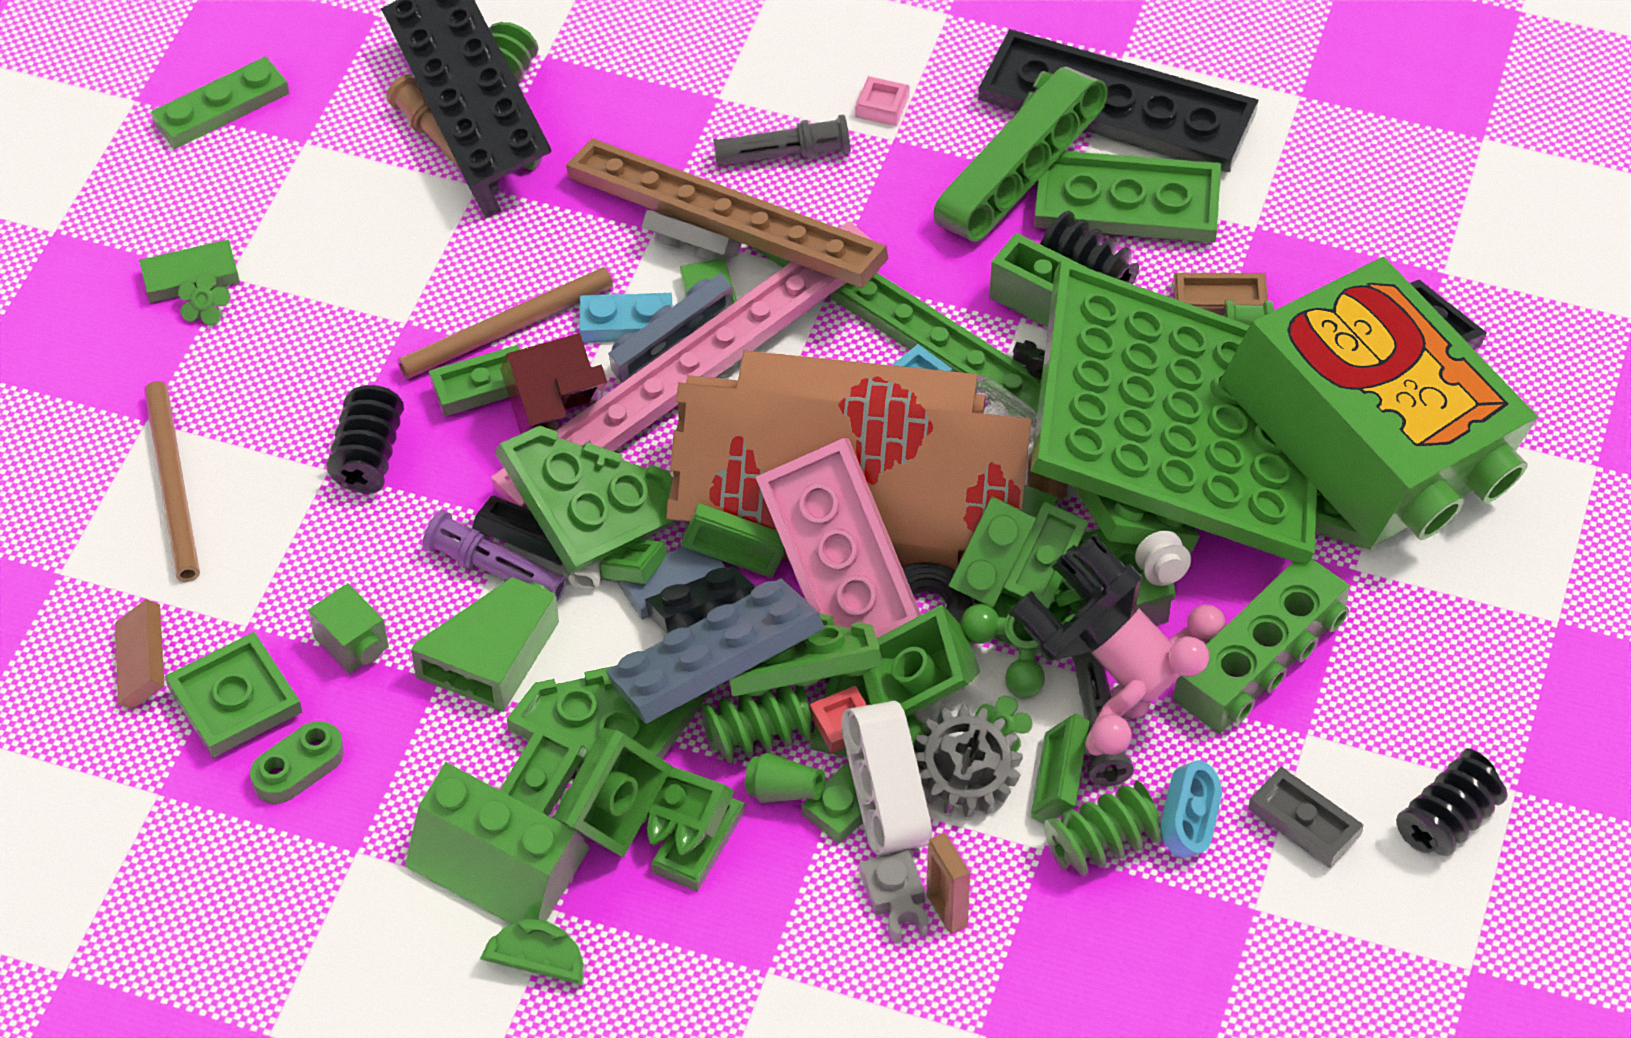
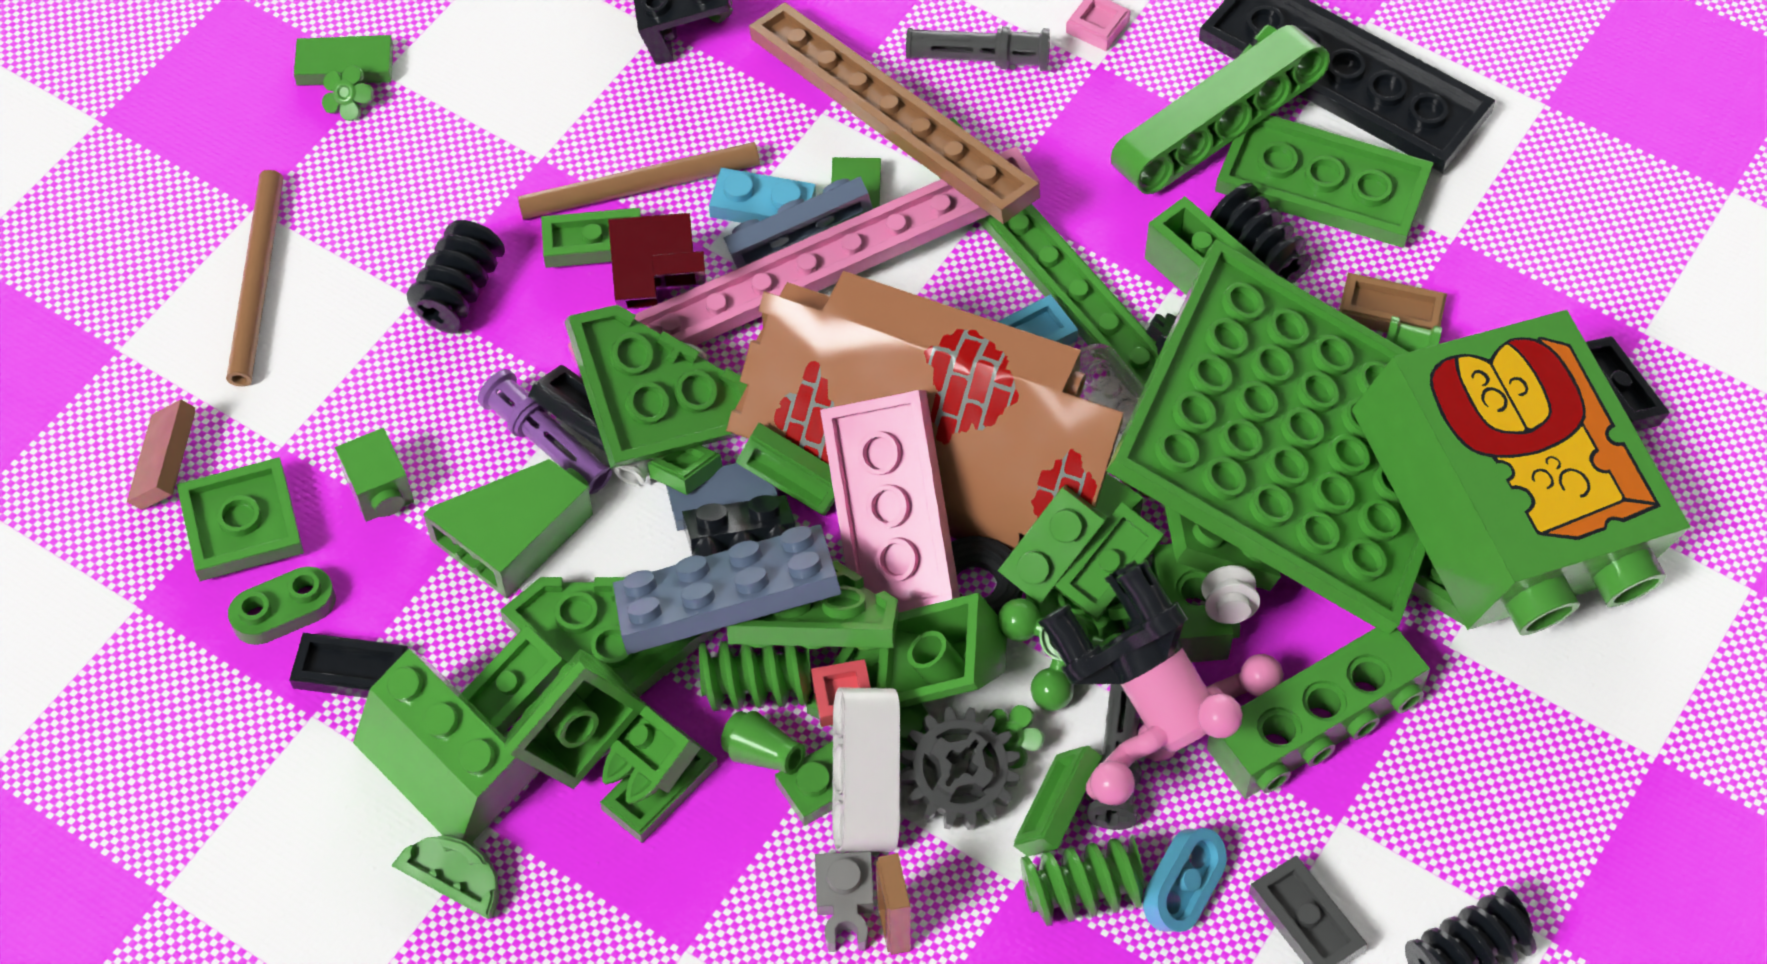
camera: 15 degrees right, 5 degrees up
(375, 800) = (341, 664): none -> black tile
(673, 231) = (838, 121): light grey plate -> none

